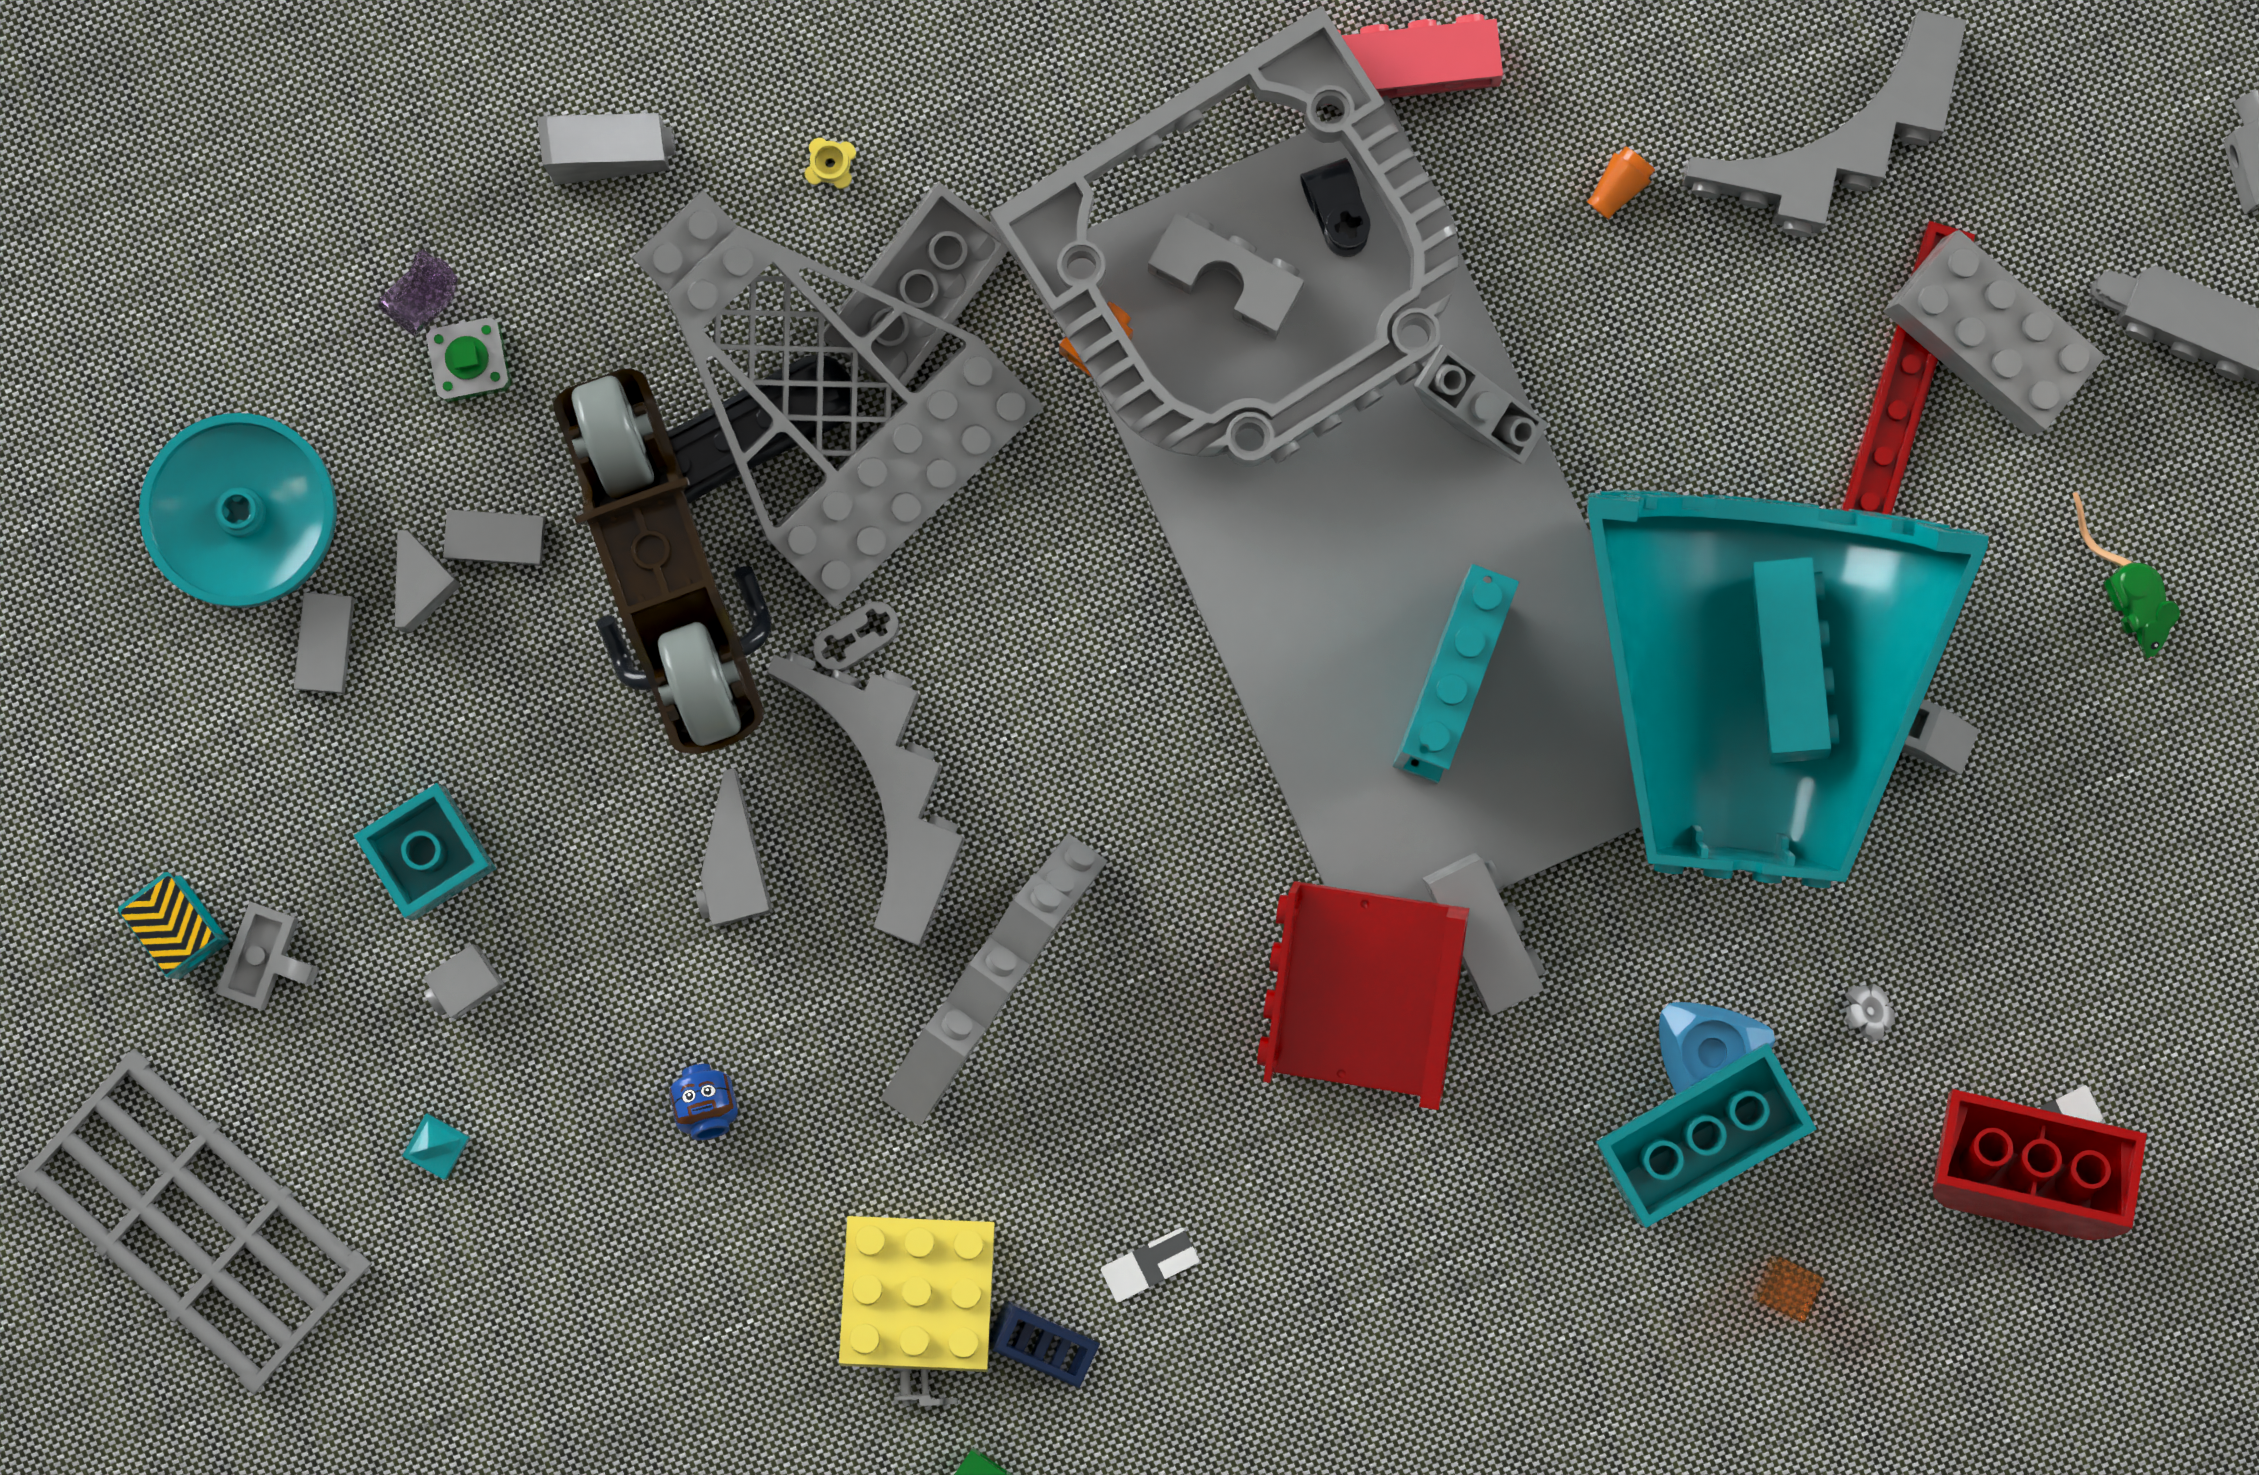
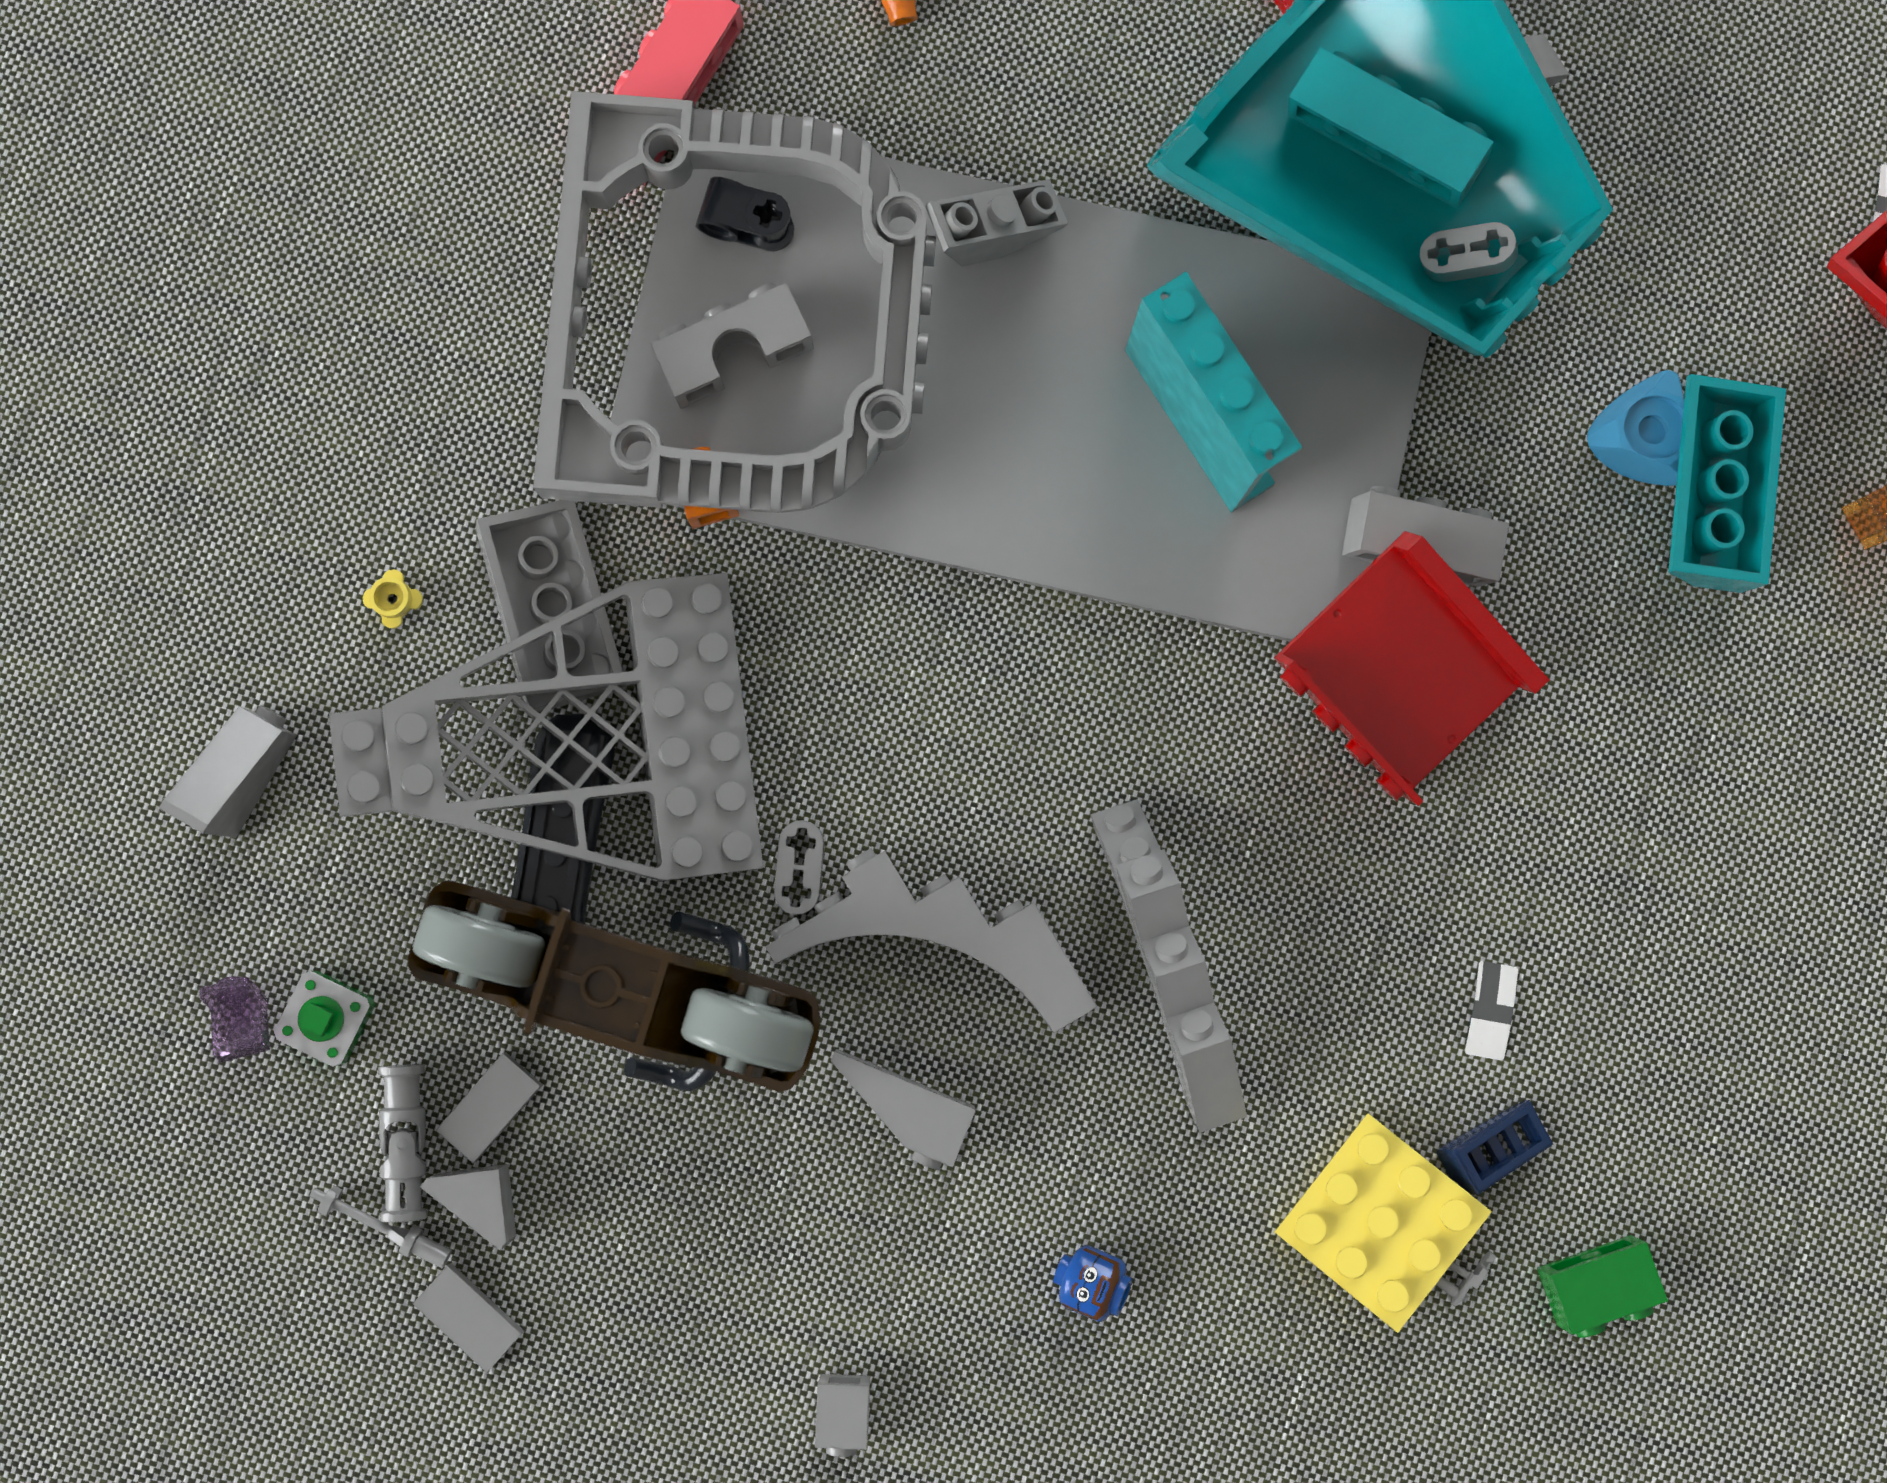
camera: 60 degrees left, 0 degrees up
(238, 510) = (299, 1311): teal dish -> none
(349, 554) = (410, 1240): none -> light grey piece
(403, 503) = (403, 1162): none -> light grey piece
(424, 852) = (709, 1366): teal brick -> none
(1745, 790) = (1469, 252): none -> light grey beam
(1869, 1011) = (1706, 284): light grey plant -> none

